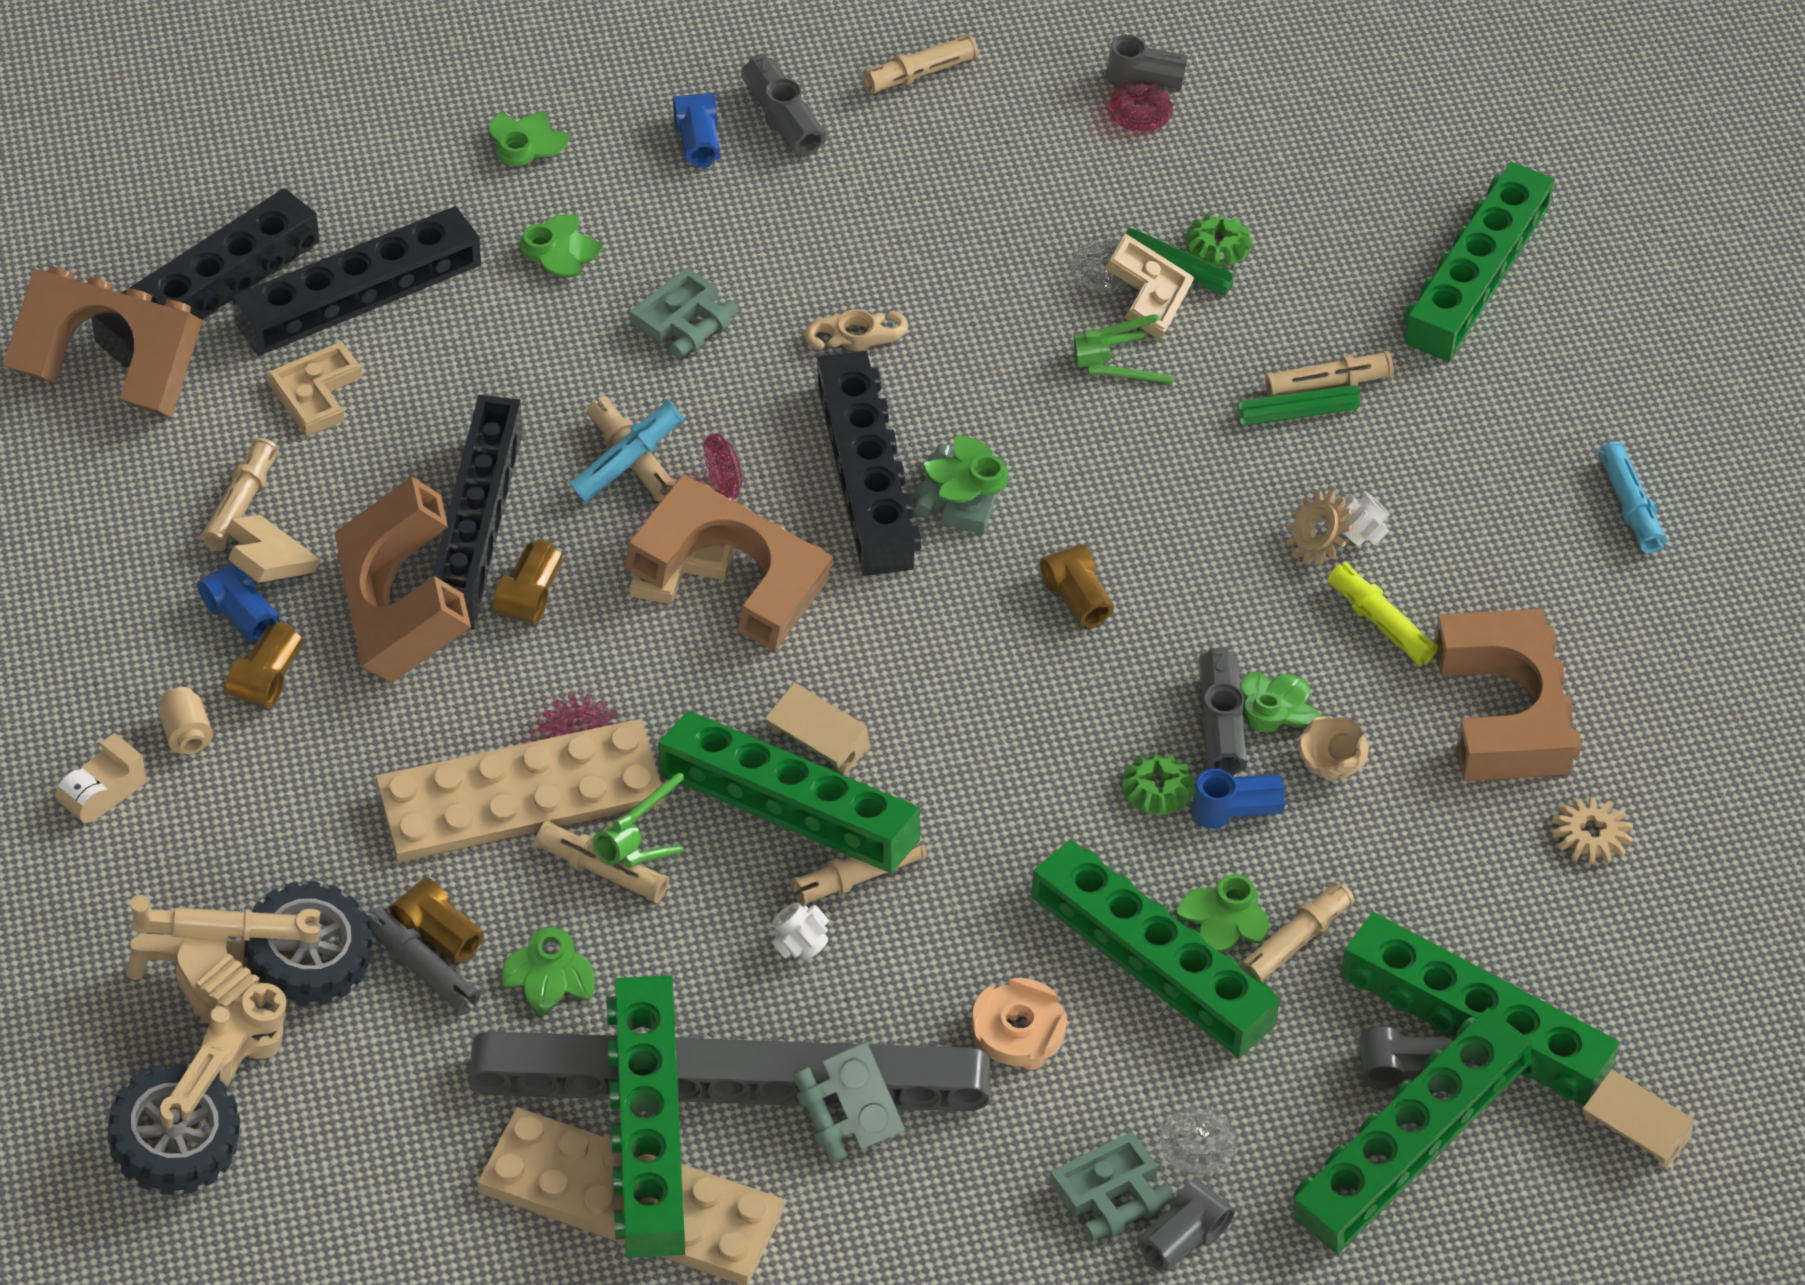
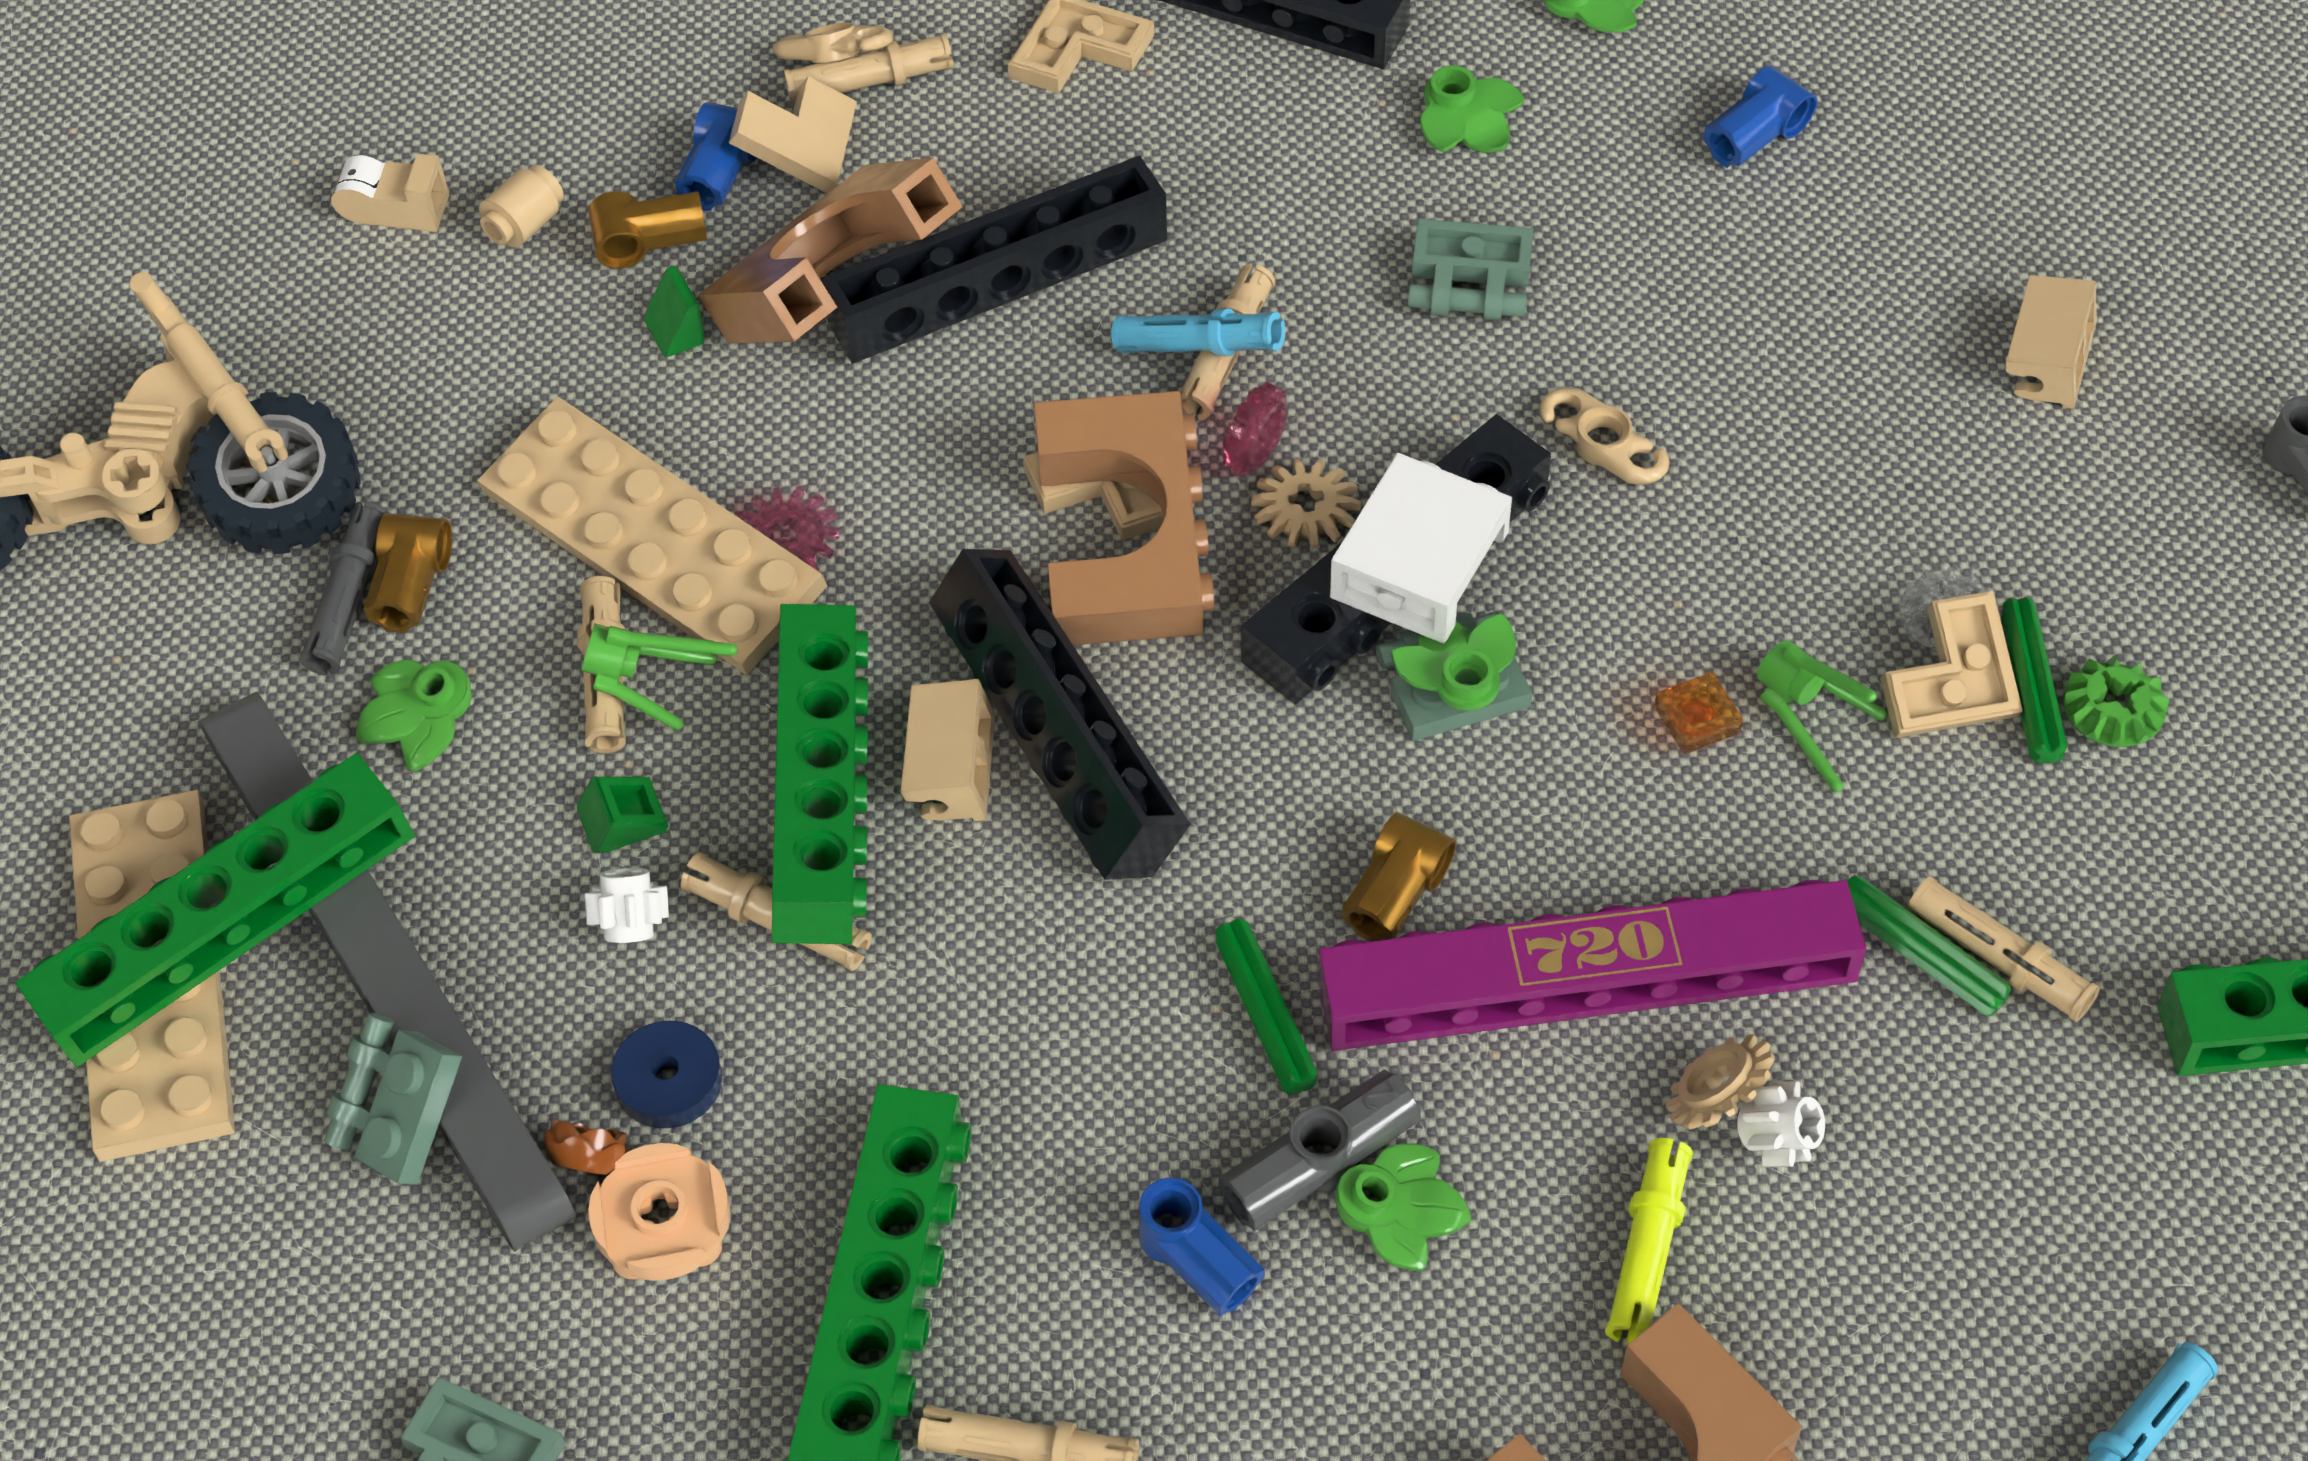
camera: 60 degrees right, 5 degrees up
(206, 496) = (832, 42): none -> tan piece
(354, 690) = (674, 315): none -> green slope
(526, 590) = (929, 372): pearl gold piece -> none
(716, 912) = (620, 812): none -> green slope
(783, 105) = (1872, 168): dark grey piece -> none
(787, 495) = (1291, 518): none -> tan gear
(864, 650) = (1059, 715): none -> black brick
(896, 434) = (1418, 546): none -> white panel
(905, 68) = (2068, 247): tan pin -> none
(924, 995) = (672, 1100): none -> dark blue piece
(952, 1030) = (584, 1148): none -> dark orange plate
(974, 108) = (2053, 338): none -> tan hinge
(1081, 402) = (1698, 713): none -> clear orange plate
(1107, 689) = (1266, 1007): none -> green axle
(1144, 794) = (1128, 1143): bright green gear -> none
(1146, 116) = (2237, 512): clear pink gear -> none
(1200, 541) = (1590, 964): none -> magenta brick
(1225, 919) = (995, 1347): bright green plate -> none
(1333, 747) = (1361, 1309): tan hair -> none

